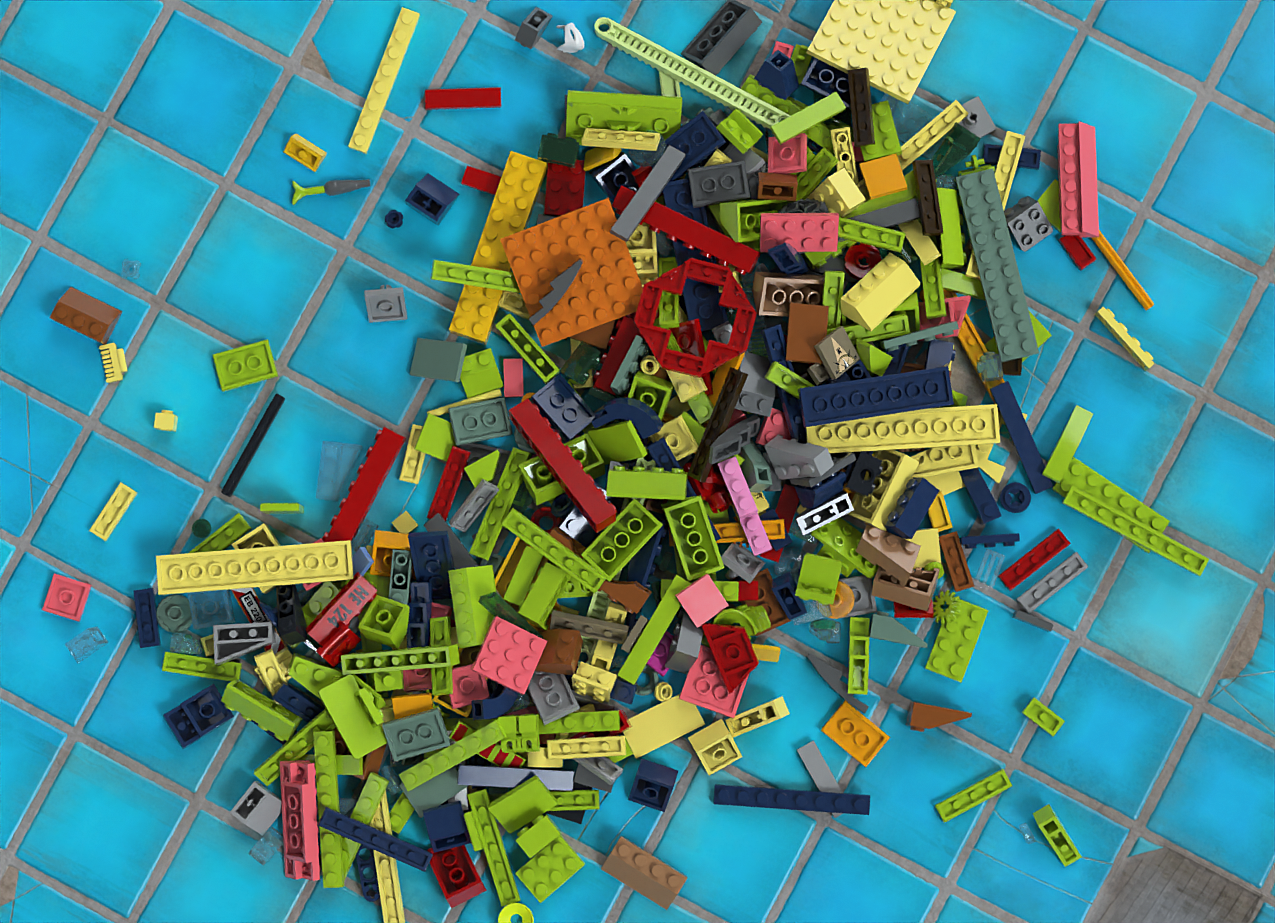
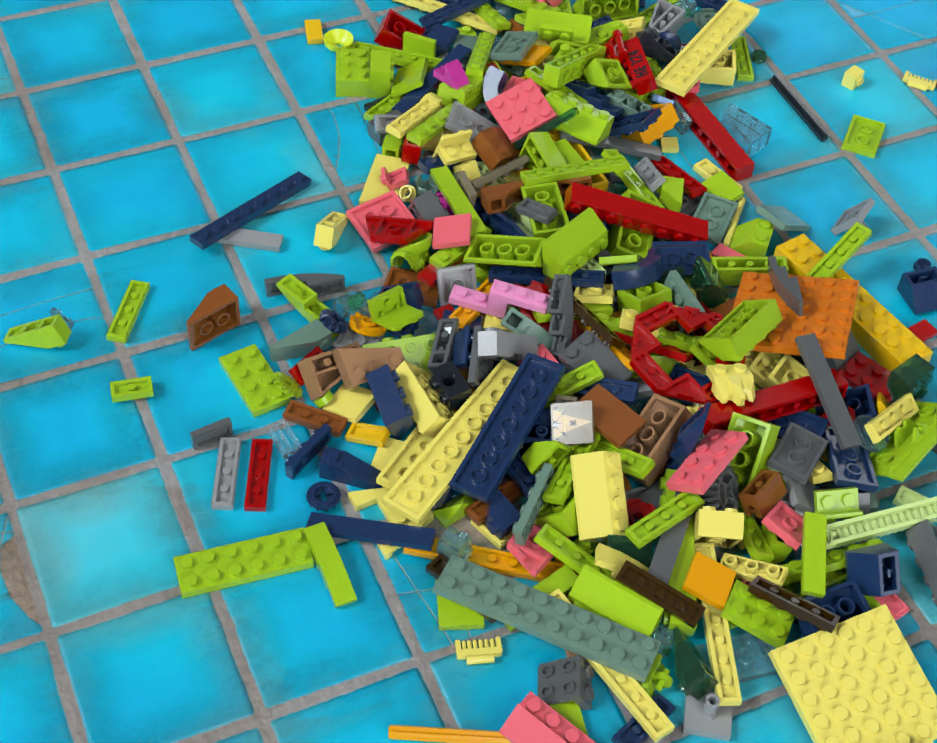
camera: 125 degrees right, 35 degrees down
(113, 511) = (807, 30): light yellow tile -> none
(211, 608) = (693, 23): clear light blue brick -> none
(281, 508) = (739, 86): lime tile -> none
(525, 742) = (452, 74): none -> dark pink slope
(635, 541) = (537, 211): none -> dark grey tile
(643, 290) = (742, 329): none -> lime slope
(644, 872) = (296, 115): medium nougat slope -> none
(653, 785) = (349, 150): dark blue slope -> none
(661, 711) = (394, 179): none -> coral bracket
(705, 263) = (731, 383): none -> light yellow plate
(715, 747) = (337, 193): light yellow slope -> none
(766, 652) = (377, 262): yellow slope -> none
(855, 733) = (250, 275): light orange tile -> none
(868, 618) = (333, 321): none -> dark blue gear
(1047, 293) = (478, 655): none -> light yellow piece
(1077, 250) = (495, 711): red tile -> none
(1119, 331) = (380, 682): light yellow plate -> none
(1135, 531) = (200, 552): lime plate -> none

